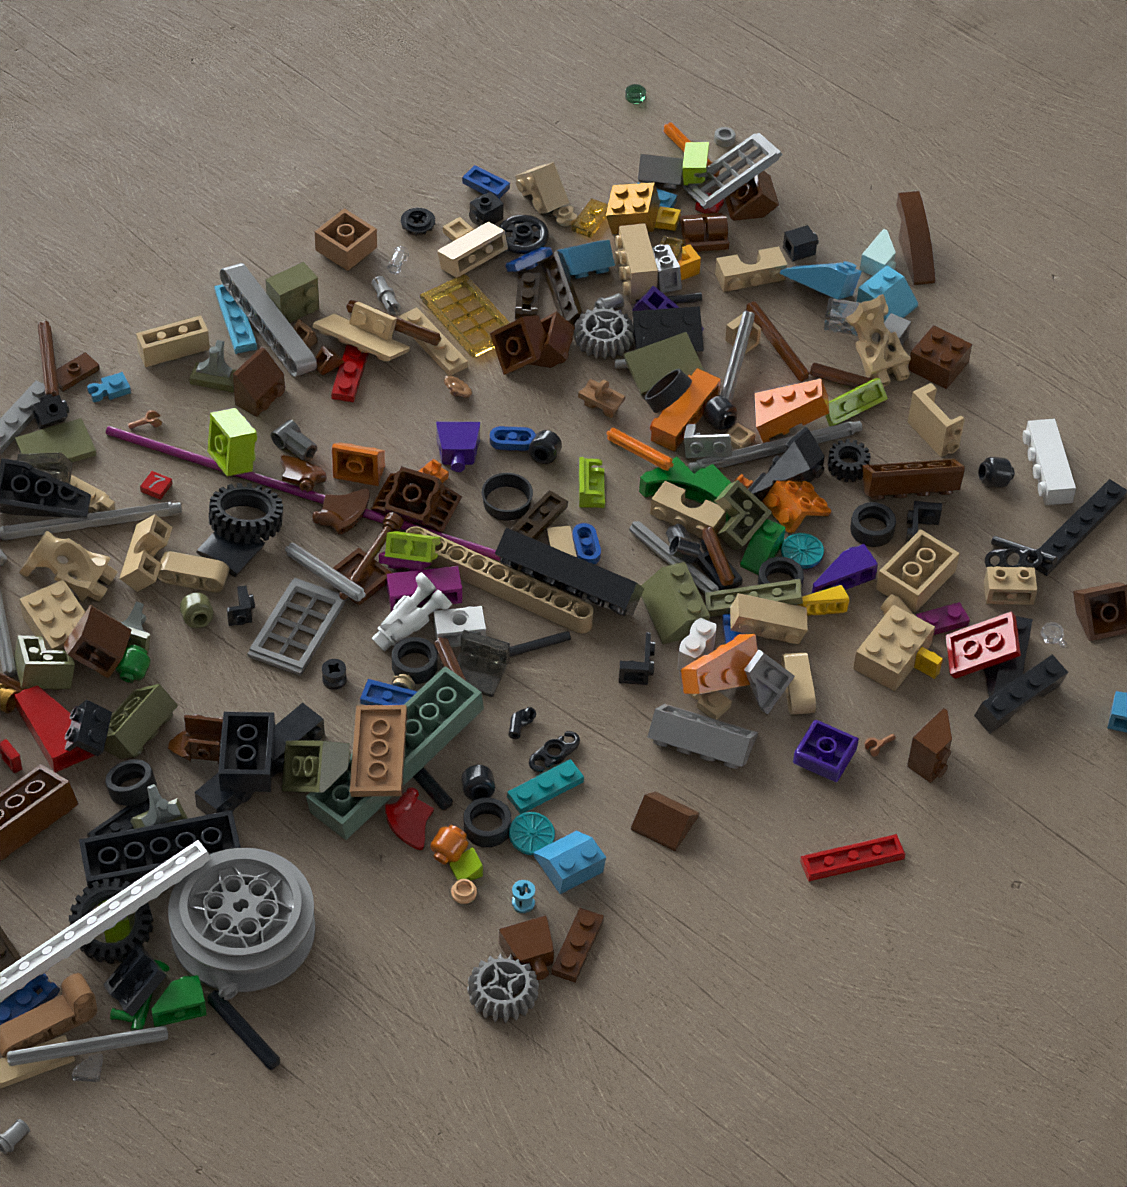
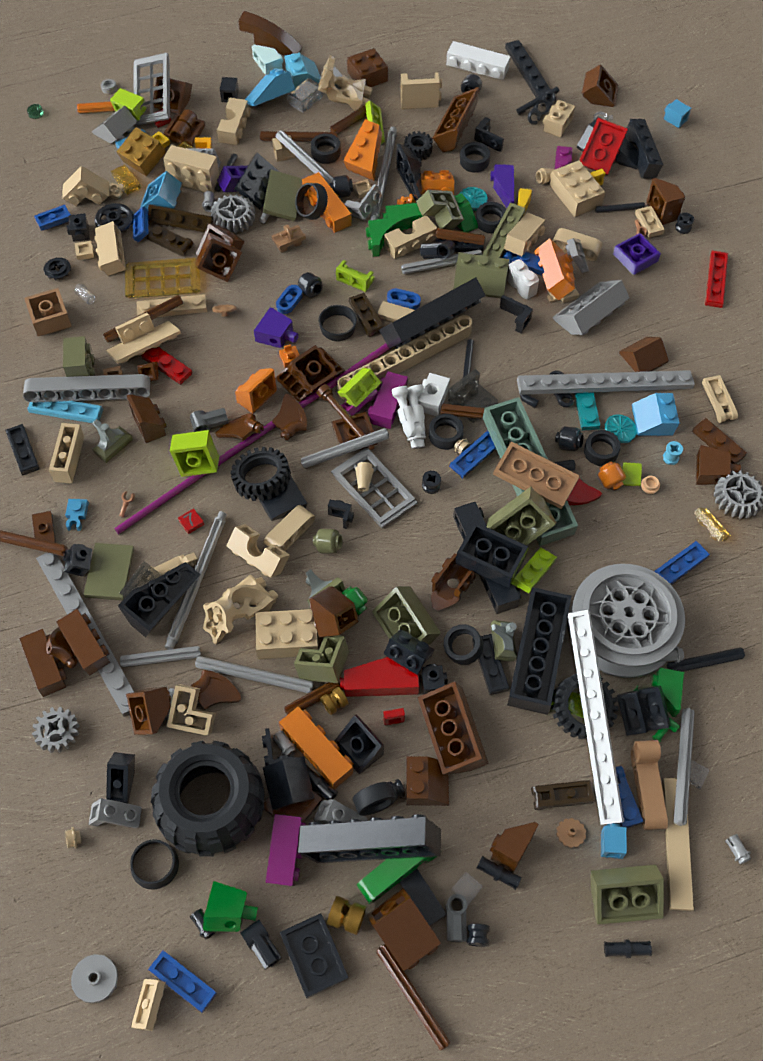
camera: 60 degrees left, 10 degrees up
(75, 770) = (433, 678): none -> black brick
(163, 307) = (22, 449): none -> black tile
(266, 813) = (534, 570): none -> lime plate
(299, 604) = (364, 475): none -> tan cone
(363, 959) = (683, 562): none -> blue plate
(386, 295) = (112, 313): light grey pin -> none
(439, 972) = (707, 520): none -> clear yellow plate
(588, 790) = (605, 382): none -> light grey plate
(640, 449) = (347, 236): orange axle -> none
(645, 921) = (720, 398): none -> tan plate
(777, 361) = (327, 140): none -> black tyre
(894, 749) = (649, 220): none -> tan plate
(900, 706) = (619, 207): none -> black bar
(918, 570) = (527, 150): tan brick -> none
(919, 782) = (684, 223): none -> black wheel

